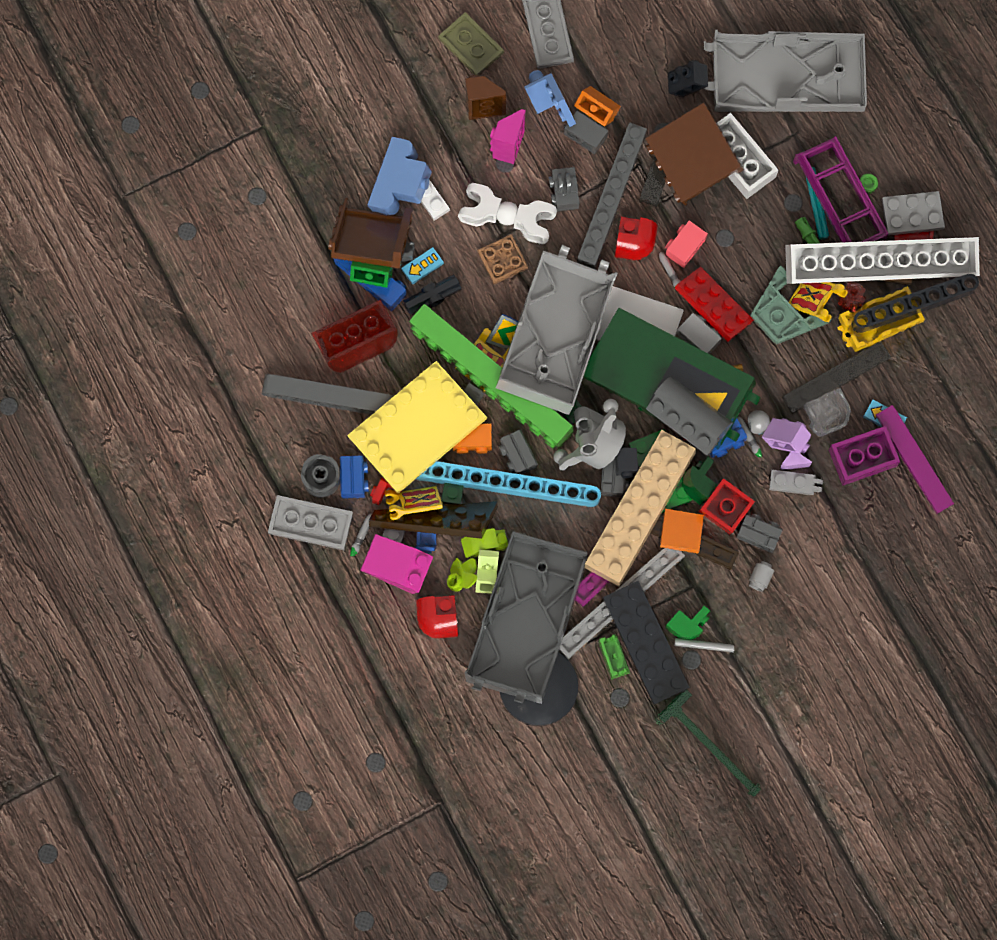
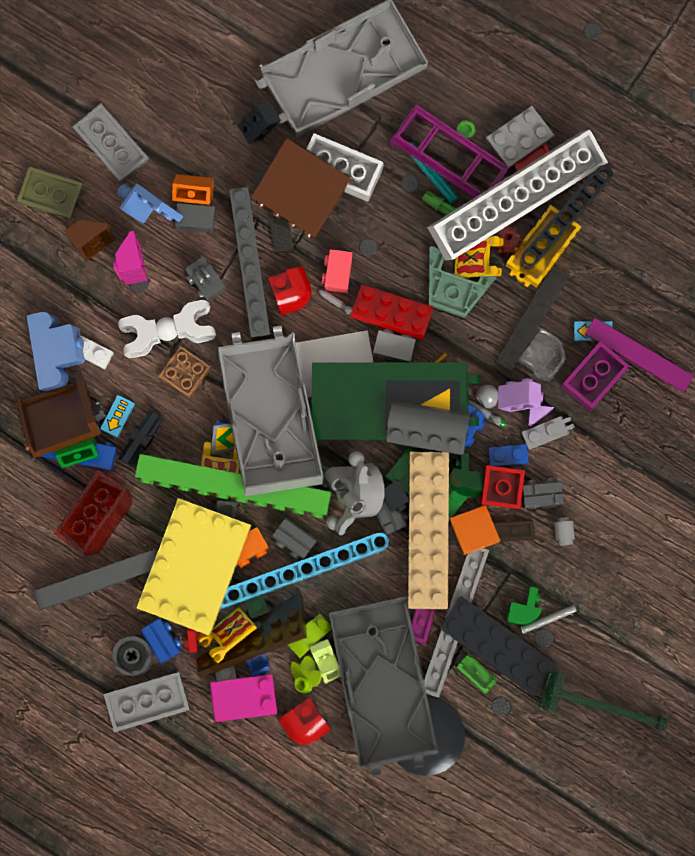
camera: 25 degrees left, 5 degrees up
(360, 537) = (197, 689): light grey piece -> none
(749, 484) = (508, 455): none -> blue plate

